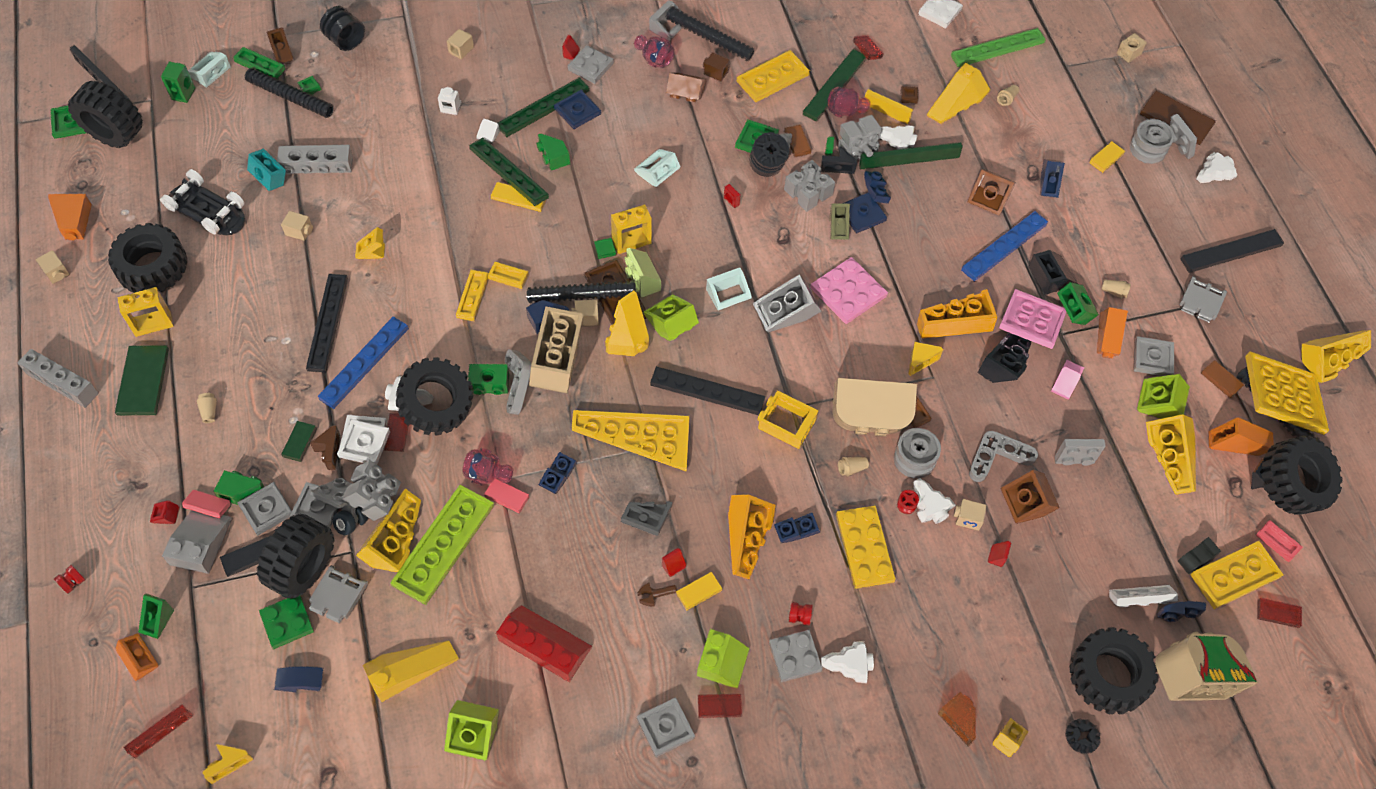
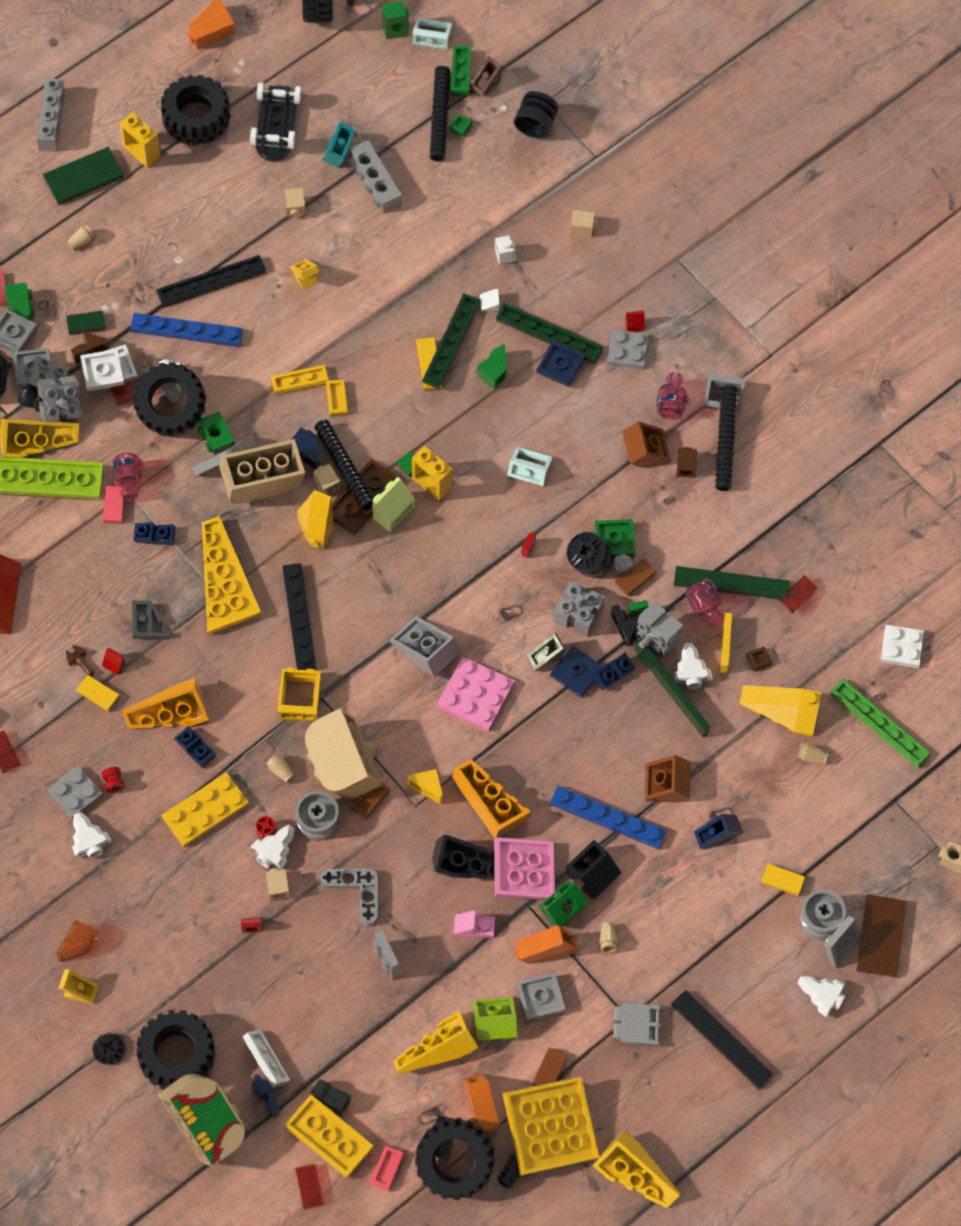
camera: 65 degrees right, 5 degrees up
(52, 267) = (152, 45): tan brick -> none
(672, 317) = (358, 552): lime slope -> none
(722, 659) = (43, 735): lime slope -> none
(726, 281) = (424, 581): light aqua tile -> none
(772, 76) = (706, 520): yellow plate -> none
(1030, 497) = (322, 930): dark orange slope -> none

